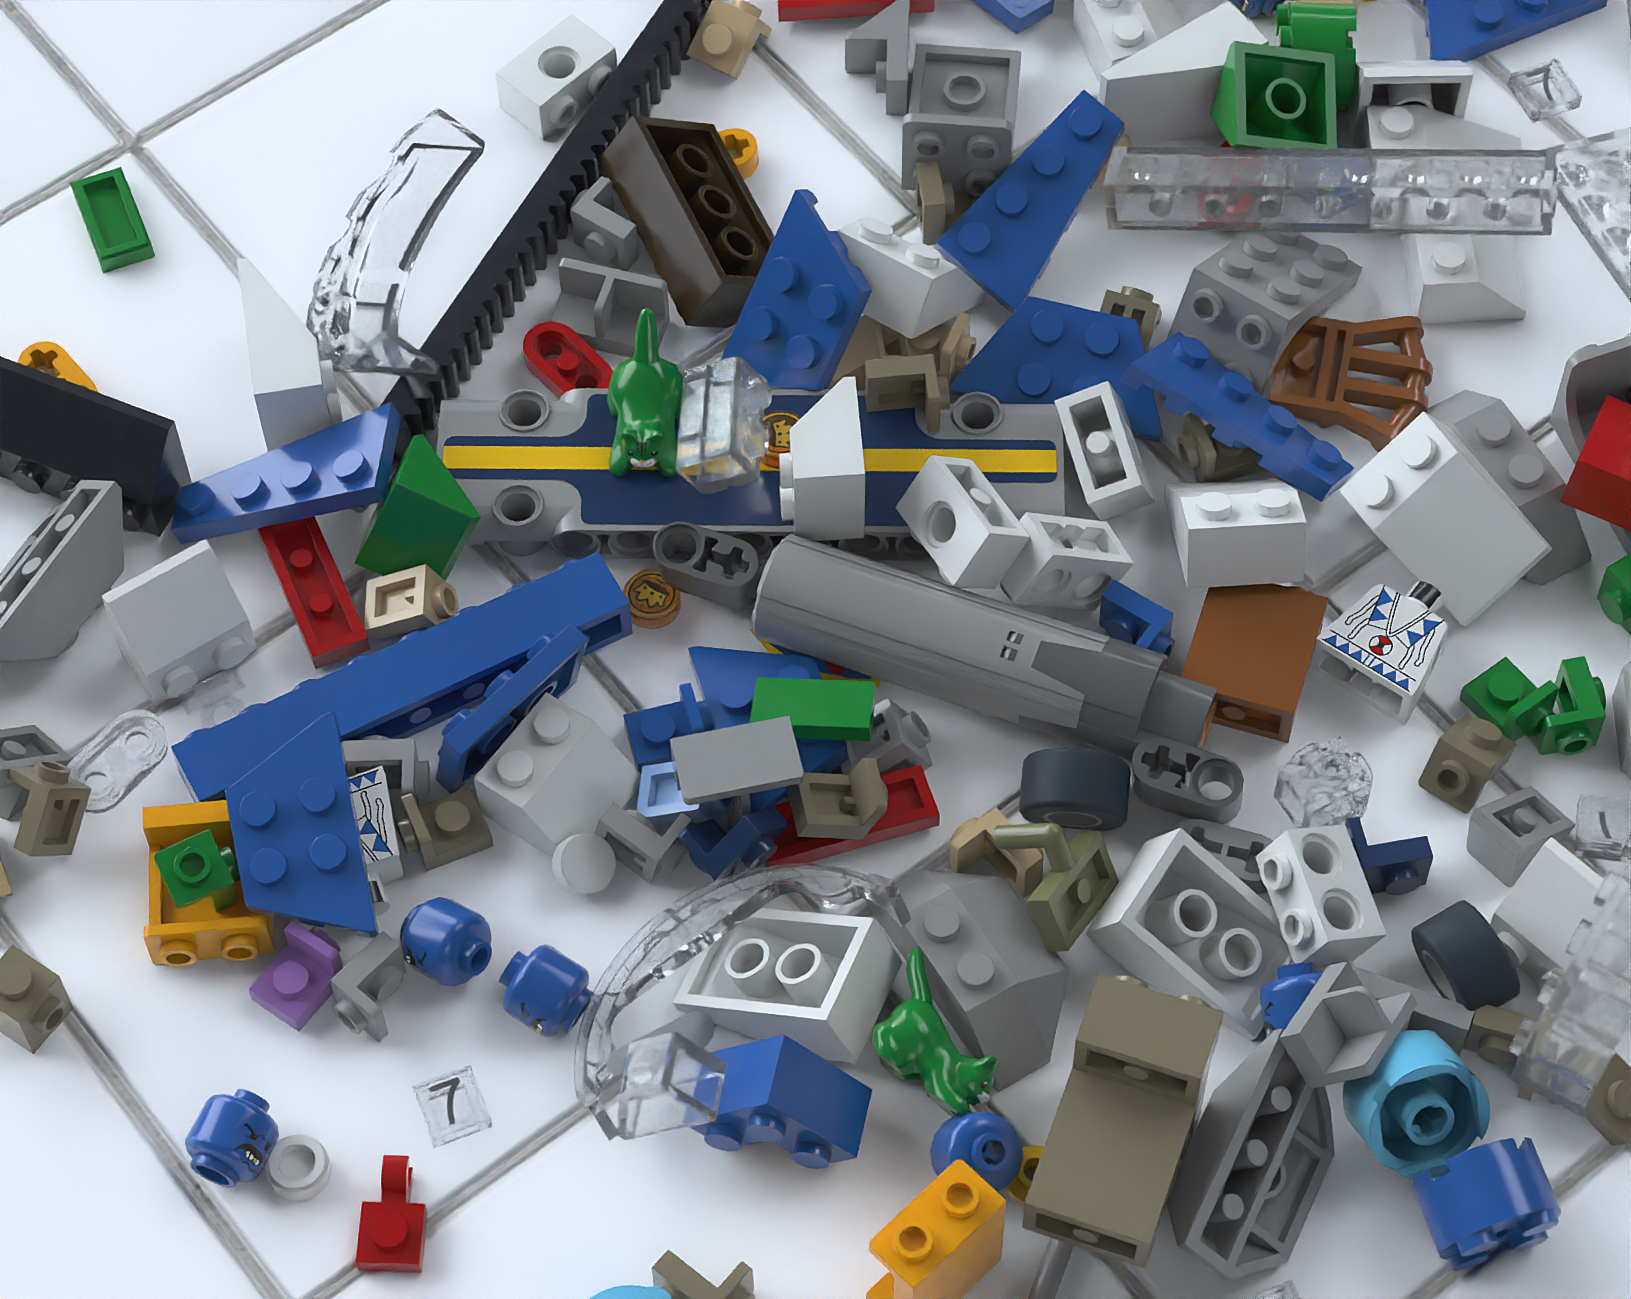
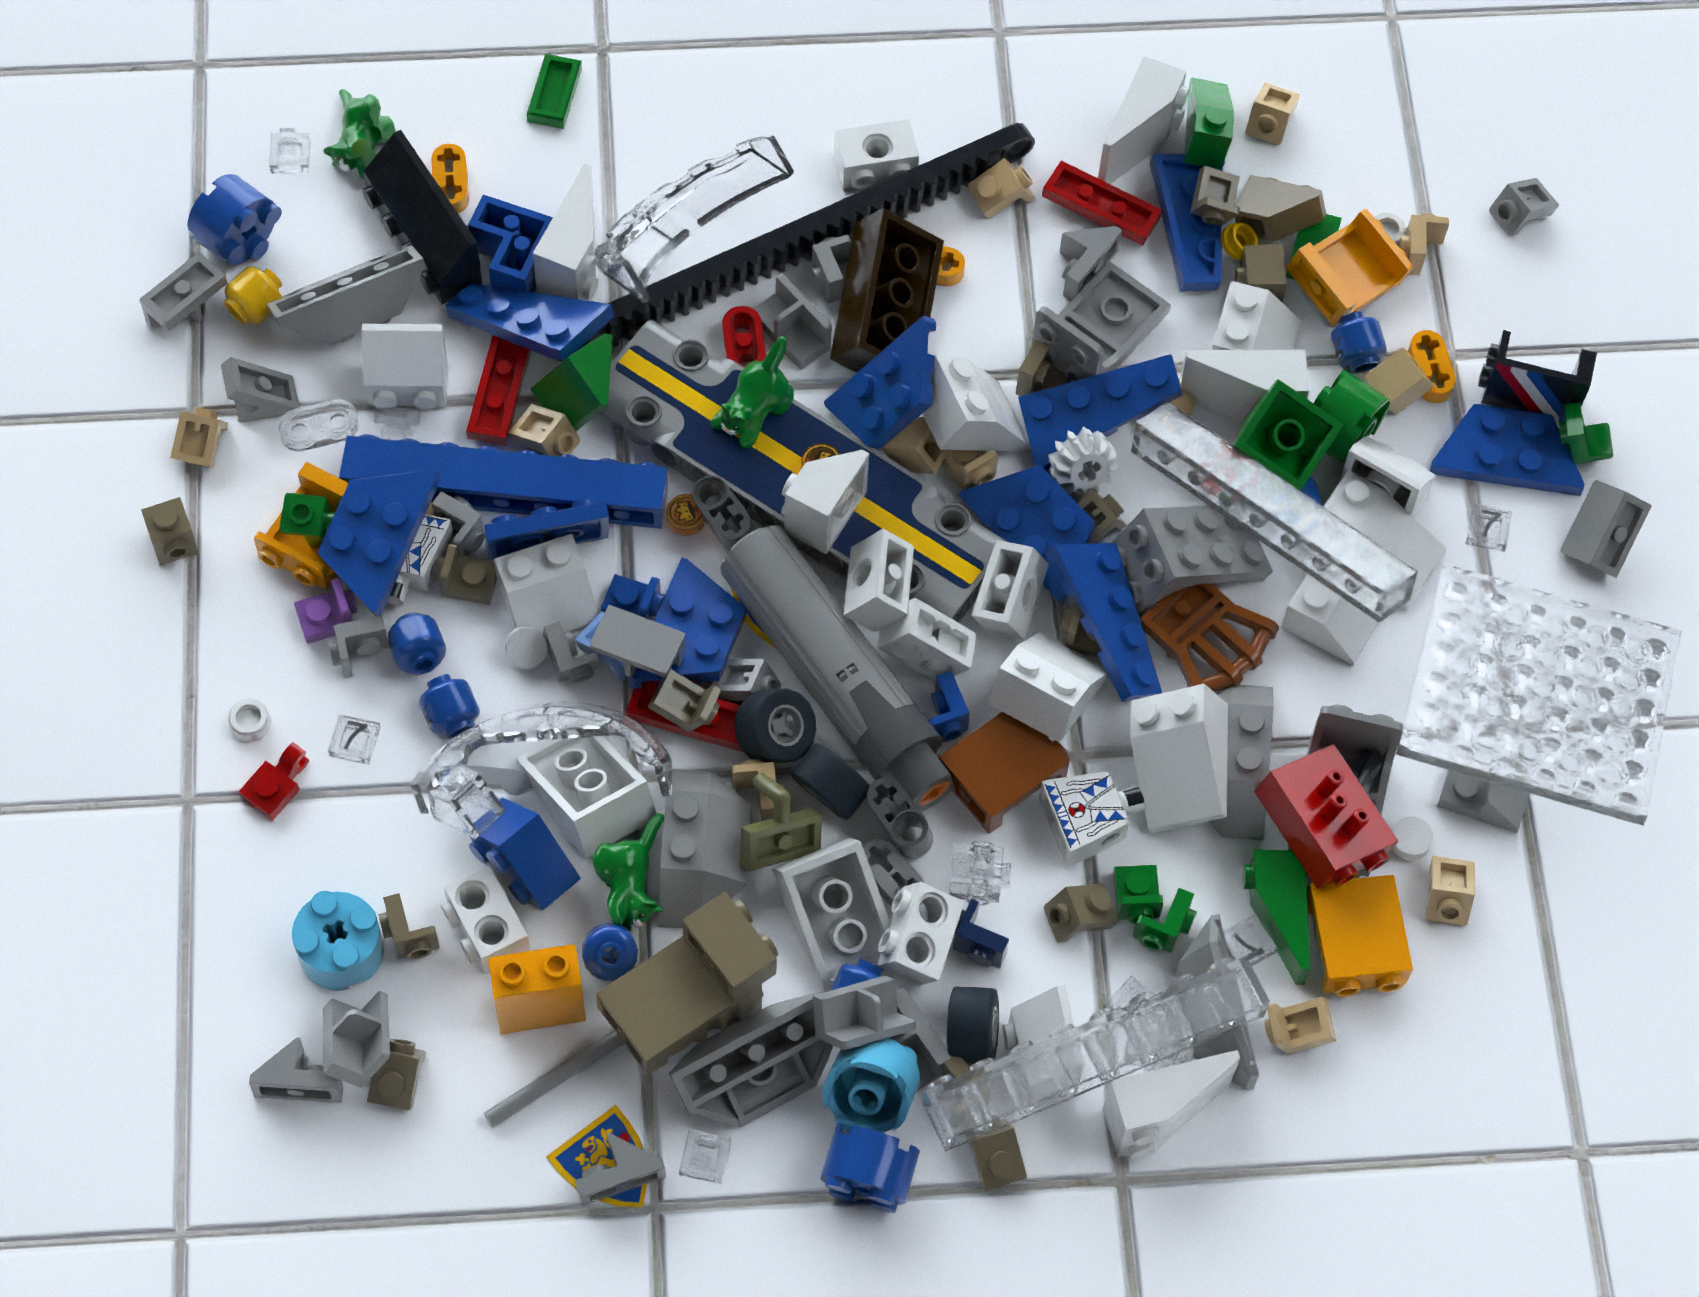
camera: 30 degrees right, 5 degrees up
(52, 808) = (259, 431): dark tan bracket -> none
(208, 401) = (509, 237): none -> blue brick
(232, 1138) = (222, 680): blue head -> none
(722, 425) = (787, 434): clear brick -> none
(743, 847) = (608, 690): dark blue bracket -> none
(802, 1202) = (492, 917): none -> white brick
(817, 706) = (714, 638): green tile -> none
(907, 383) = (918, 474): dark tan bracket -> none
(962, 766) = (775, 726): none -> black wheel
(1070, 264) = (1083, 462): none -> white gear
(1512, 831) = (1077, 967): light grey slope -> none

